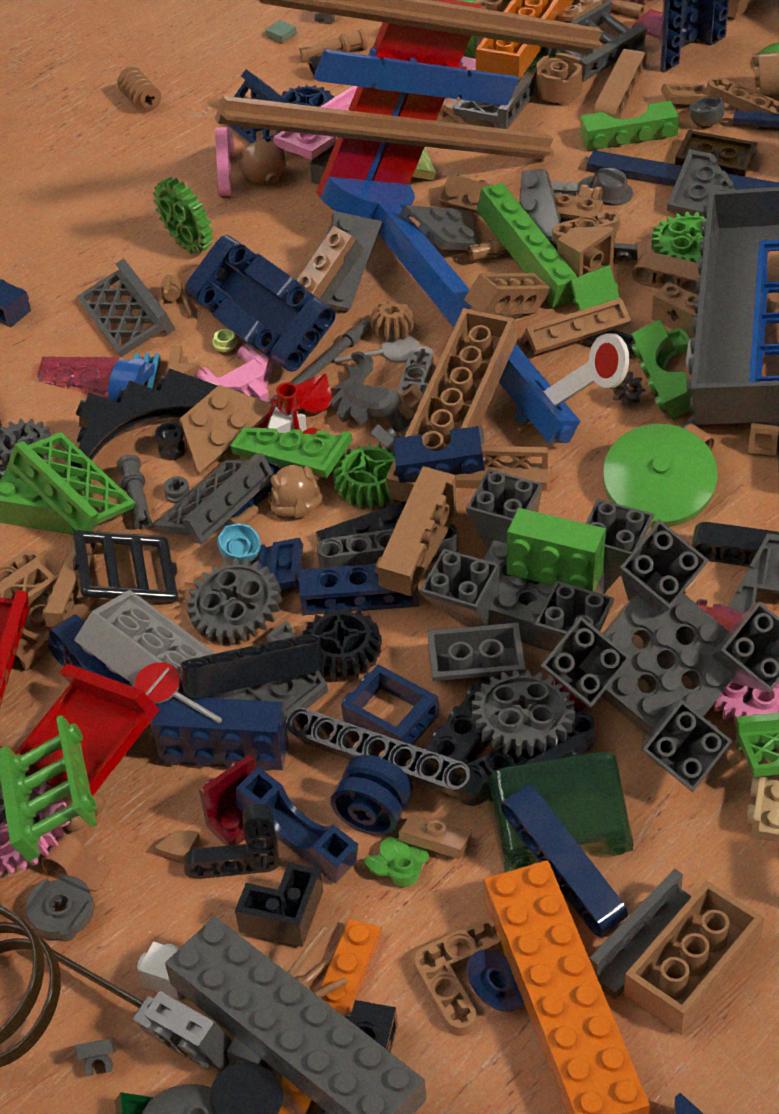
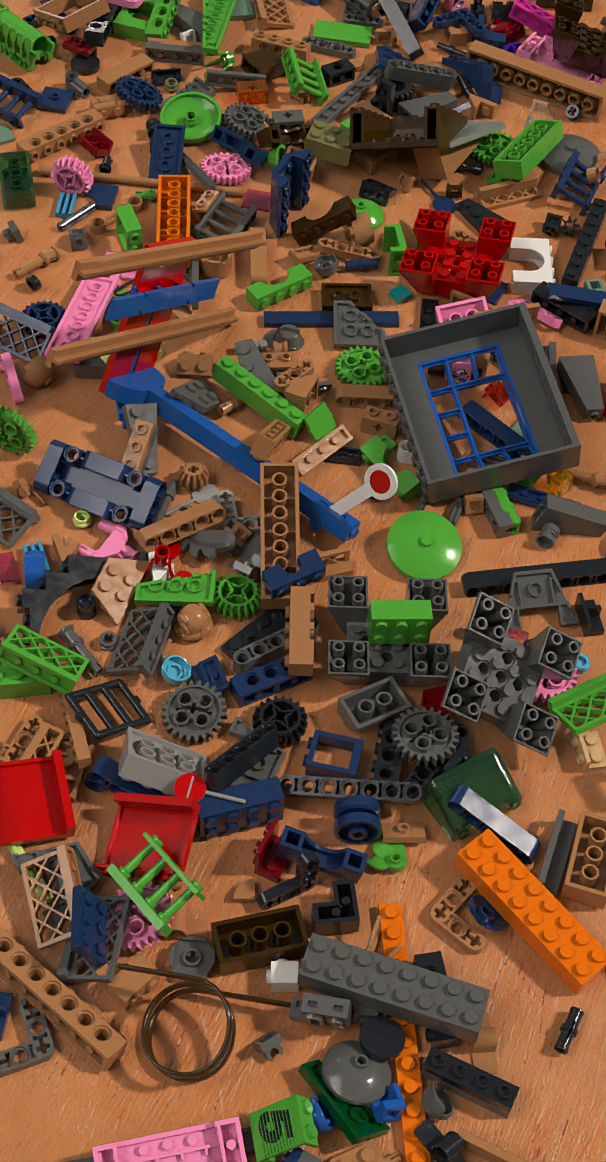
camera: 30 degrees left, 5 degrees up
(150, 905) = (259, 939): none -> dark brown brick
(347, 376) = (180, 525): none -> medium nougat beam
(734, 444) = (456, 510): none -> dark grey axle
(746, 48) = (341, 213): none -> dark brown arch

